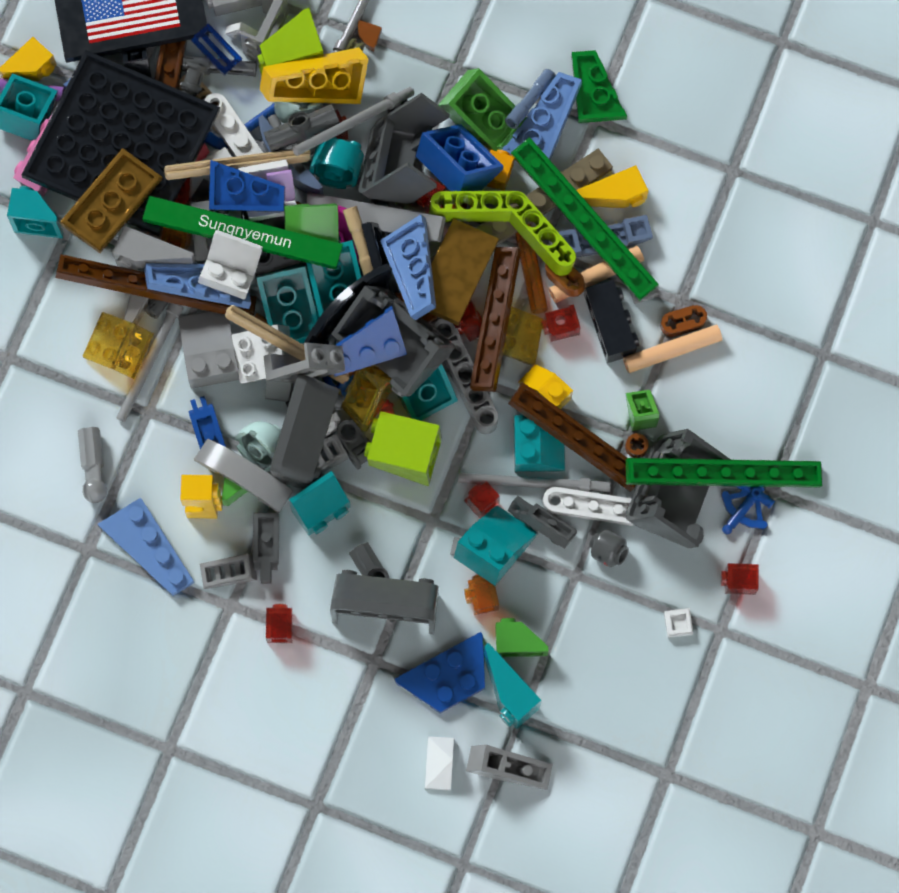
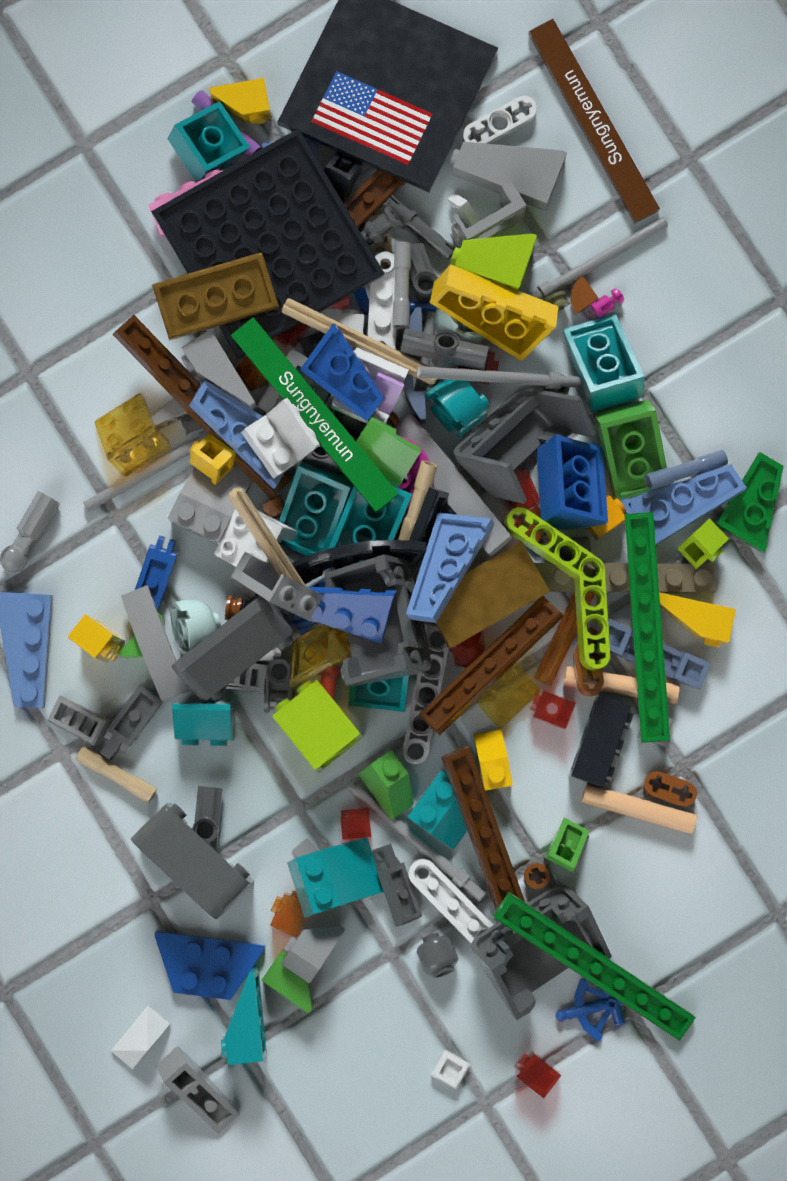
camera: 40 degrees right, 10 degrees up
(31, 214) = (139, 250): teal slope -> none
(189, 317) = (212, 458): none -> yellow brick
(230, 65) = (428, 236): clear blue tile -> none
(242, 93) = (421, 271): none -> dark grey piece
(246, 120) = (401, 302): none -> light grey piece
(265, 591) = (101, 765): none -> tan piece
(279, 624) = (88, 805): clear red brick -> none
(280, 412) = (233, 606): none -> dark orange bush
(389, 28) = (605, 304): none -> dark pink piece
(419, 65) = (604, 363): none -> teal slope
(484, 453) = (389, 784): none -> bright green slope
(516, 605) = (310, 950): none -> light grey slope
(580, 138) = (703, 544): none -> lime brick

